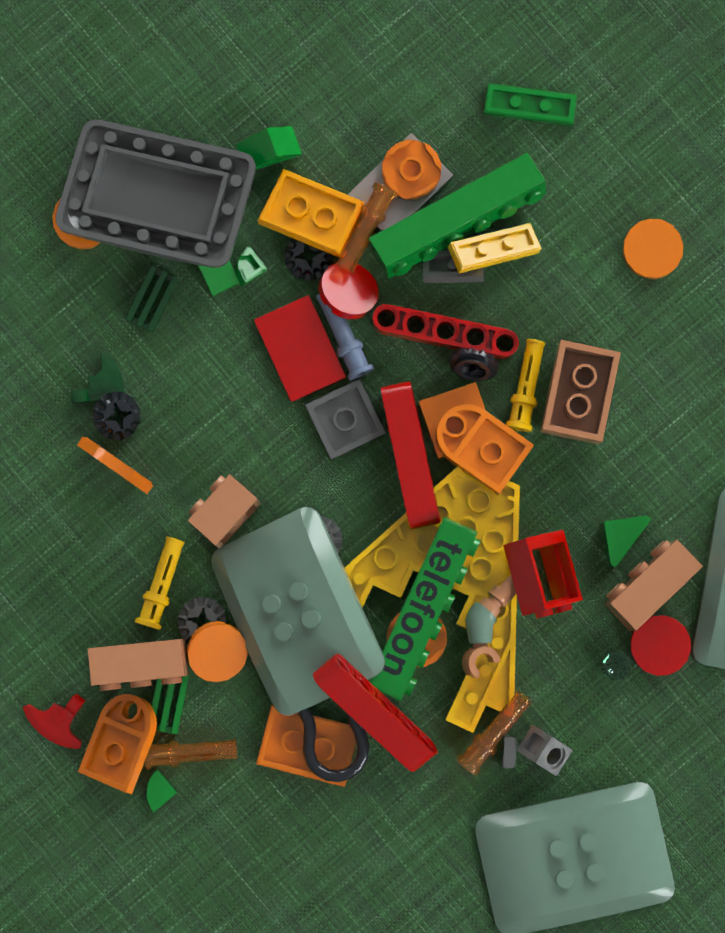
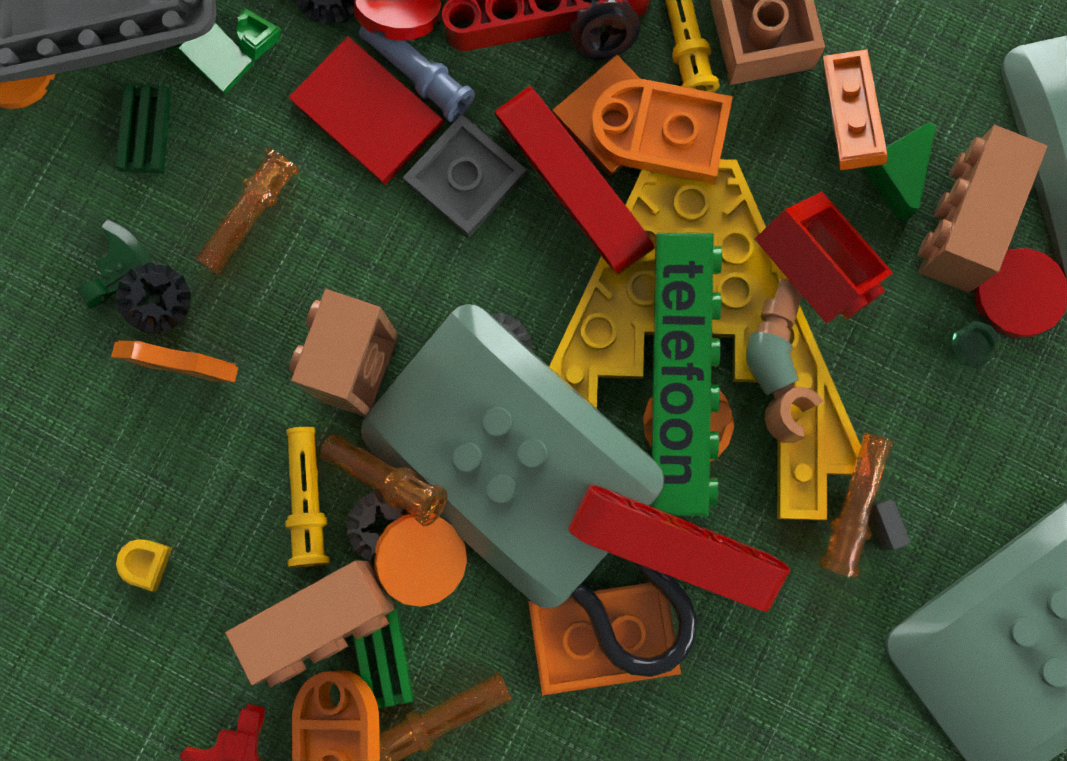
camera: 10 degrees left, 5 degrees down
(45, 580) = (143, 563): none -> yellow tile
(208, 377) = (258, 193): none -> clear orange pin
(221, 602) = (398, 486): none -> clear orange pin
(544, 750) = (938, 500): flat silver brick -> none
(607, 485) = (854, 110): none -> orange tile

